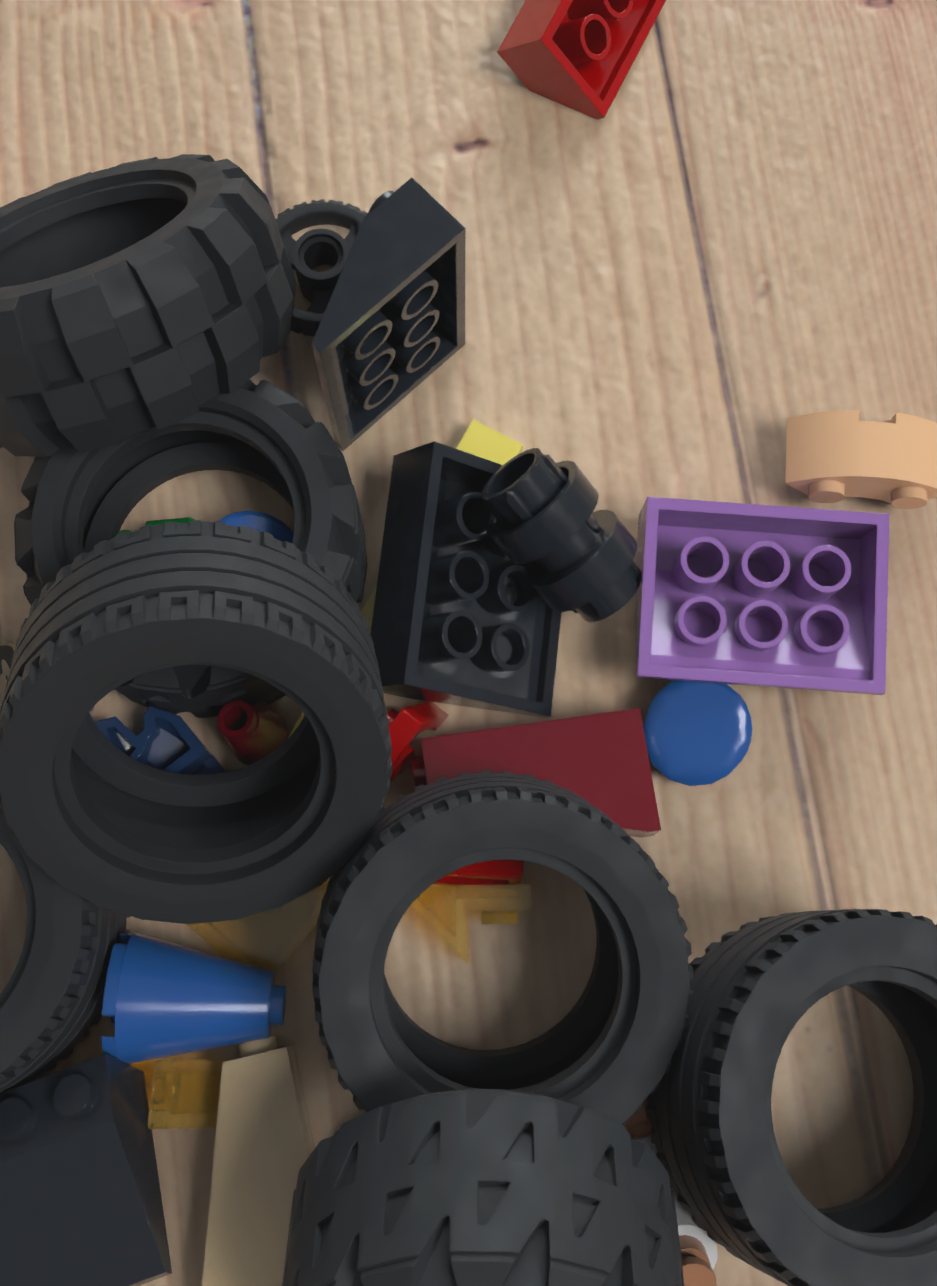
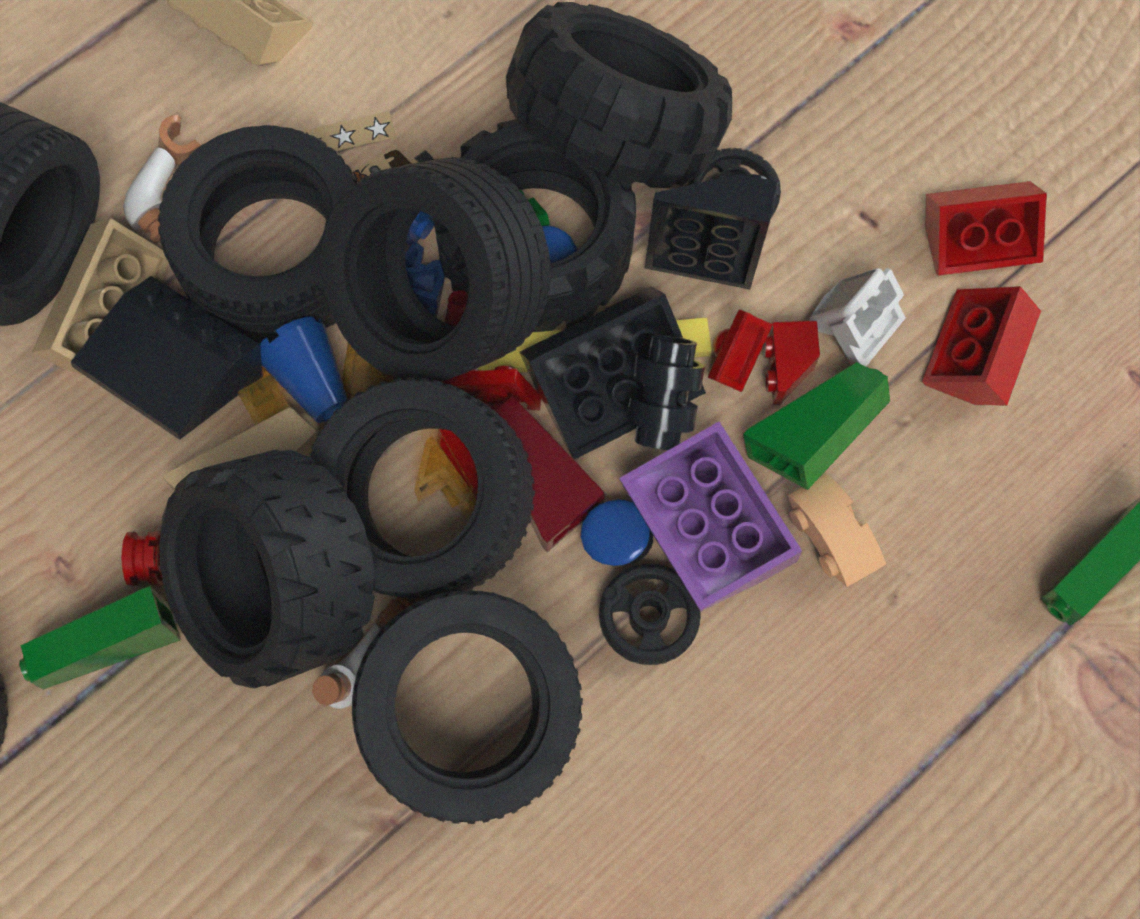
camera: 55 degrees right, 5 degrees down
(549, 409) = (738, 350): none -> red tile
(598, 234) = (861, 313): none -> white piece
(600, 354) = (792, 356): none -> red slope
(720, 391) = (819, 425): none -> green slope
(734, 129) = (983, 345): none -> red slope
(785, 787) = (652, 649): none -> black wheel

